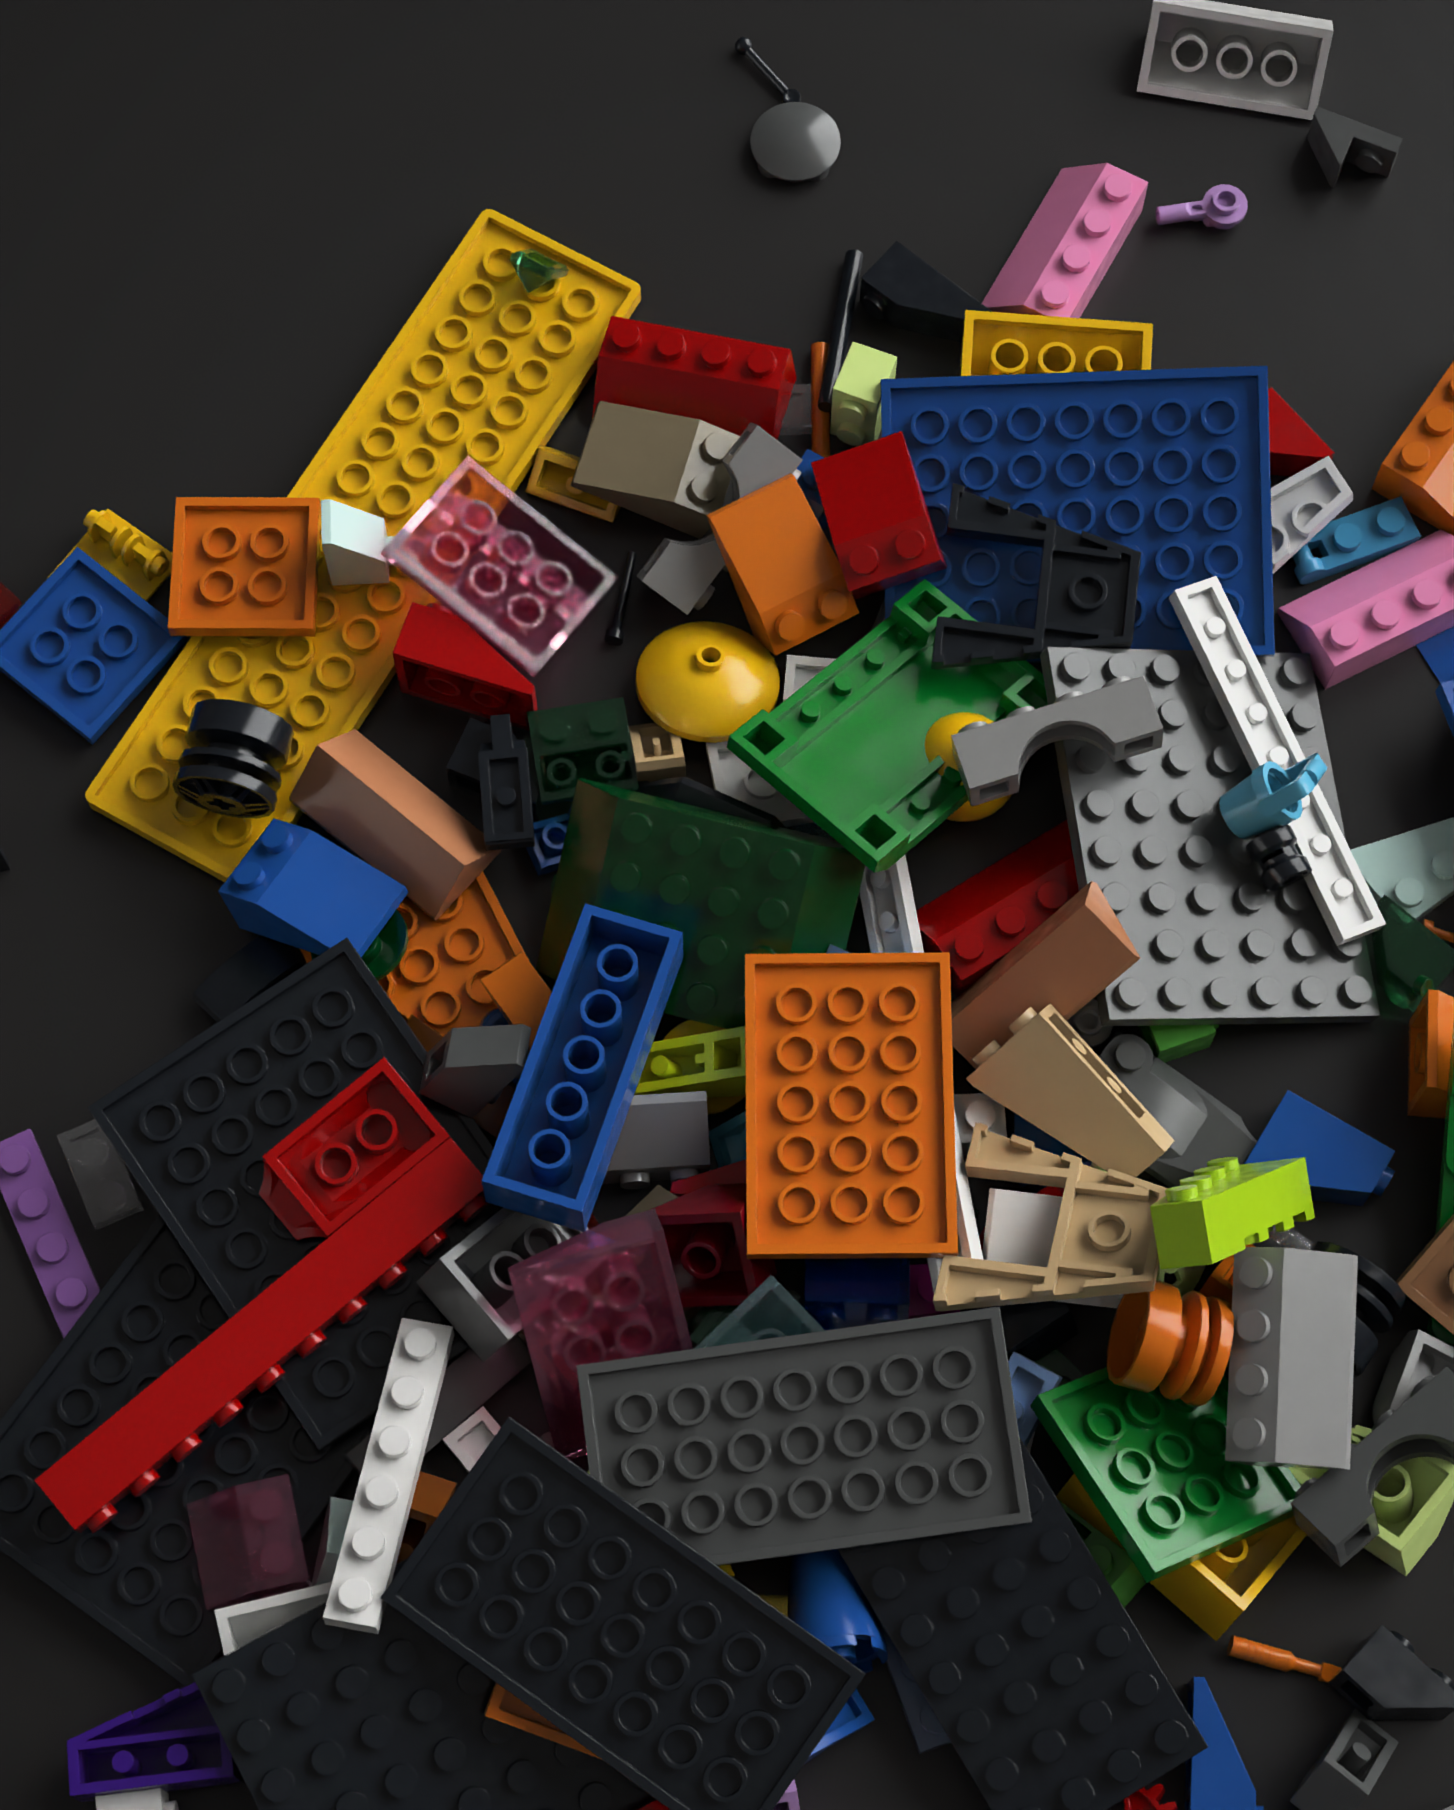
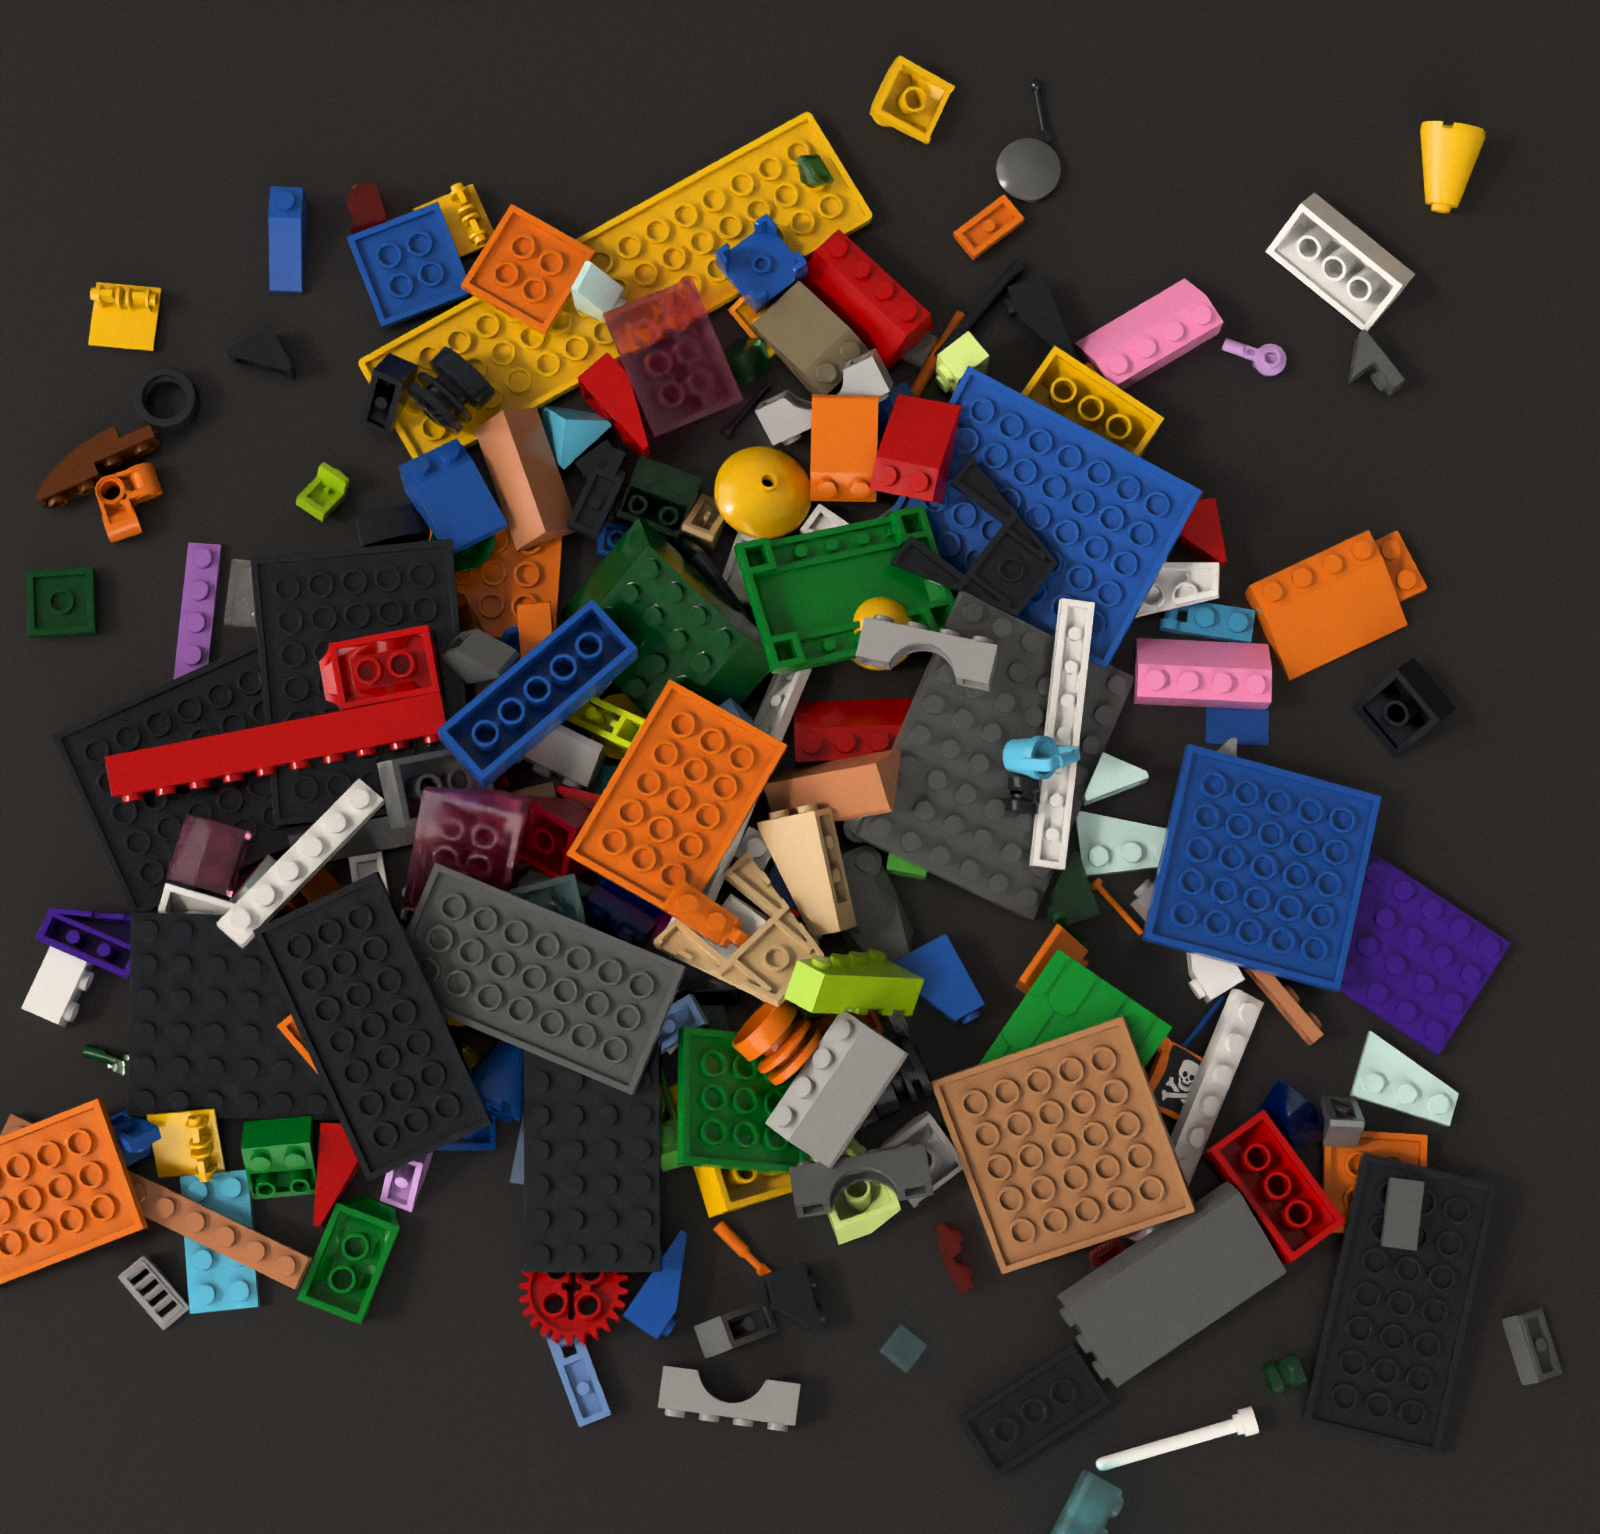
camera: 30 degrees right, 10 degrees up
(133, 983) = (324, 492): none -> lime bracket
(150, 812) = (387, 393): none -> black slope
(418, 737) = (571, 432): none -> medium azure slope
(540, 408) = (761, 265): none -> blue panel
(591, 529) = (747, 359): none -> clear green panel
(602, 132) = (910, 99): none -> yellow slope
(790, 229) = (988, 227): none -> orange plate
(980, 1230) = (704, 916): none -> orange hinge
(1362, 785) = (1112, 778): none -> light aqua slope

